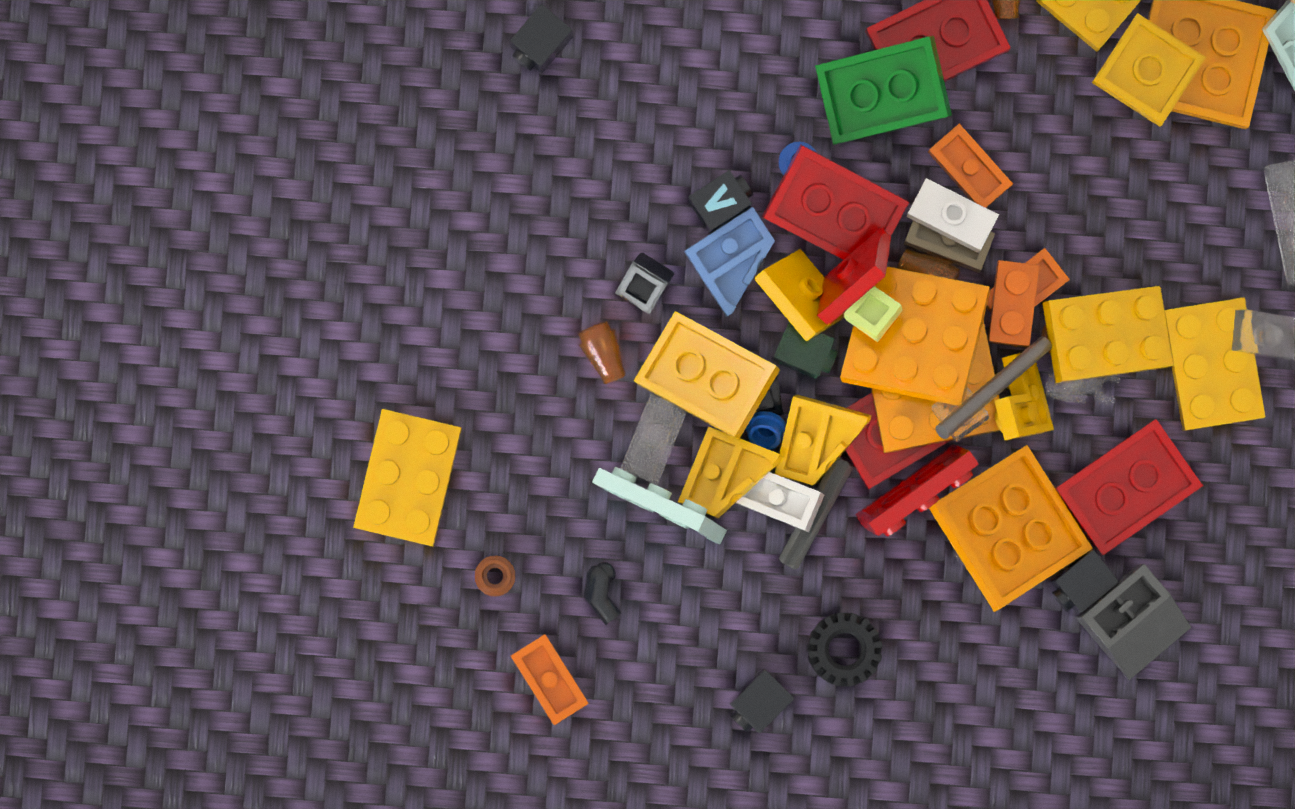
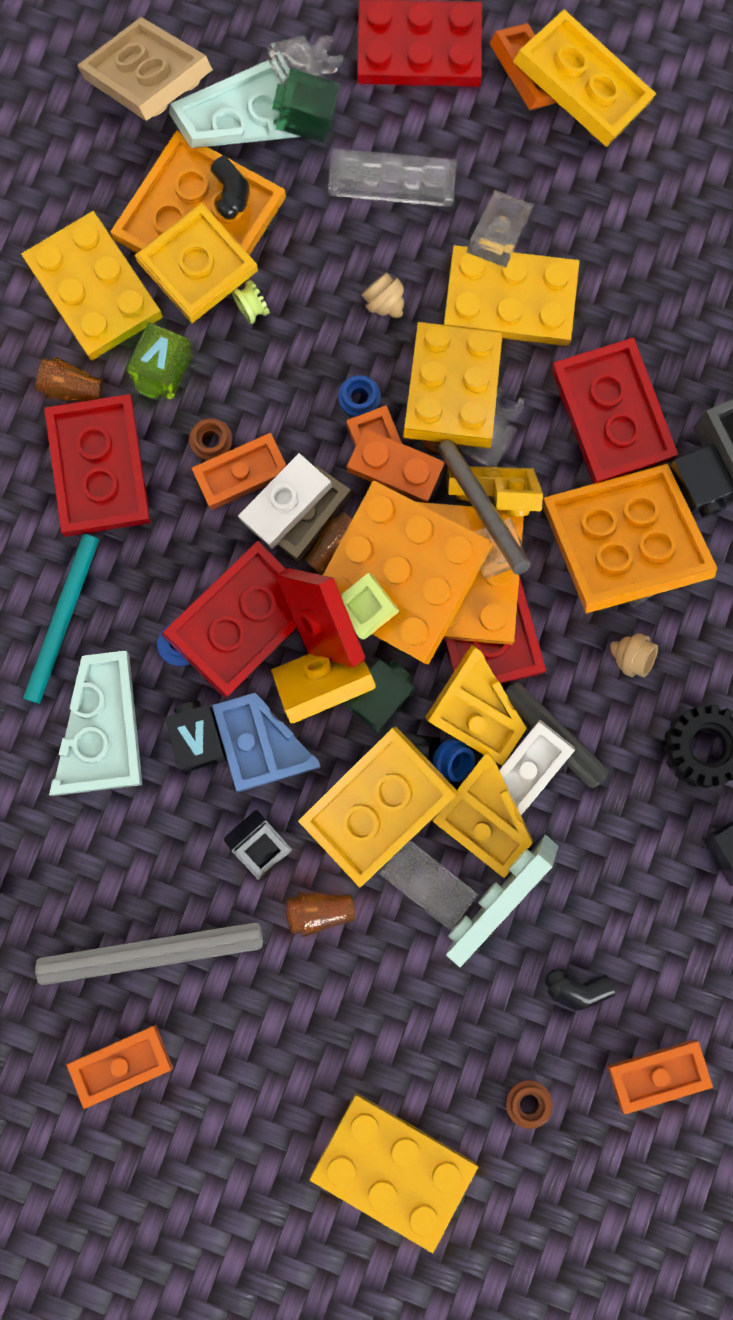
camera: 75 degrees left, 5 degrees down
(428, 223) = (119, 1066): none -> orange plate
(526, 219) = (149, 953): none -> light grey axle
(703, 118) = (102, 729): none -> light aqua wing
(785, 51) = (61, 619): none -> teal bar
(883, 90) = (131, 532): green plate -> none
(908, 565) = (634, 654): none -> tan plate
(918, 491) = (565, 619): red plate -> none
(1001, 123) = (207, 428): none -> dark orange plate
(1048, 64) = (159, 362): none -> clear neon green brick
(1082, 244) = (355, 385): none -> blue plate
(1131, 128) = (249, 303): none -> yellowish green bush
(1175, 248) = (385, 296): none -> tan plate
(1230, 82) = (235, 188): none -> black arm

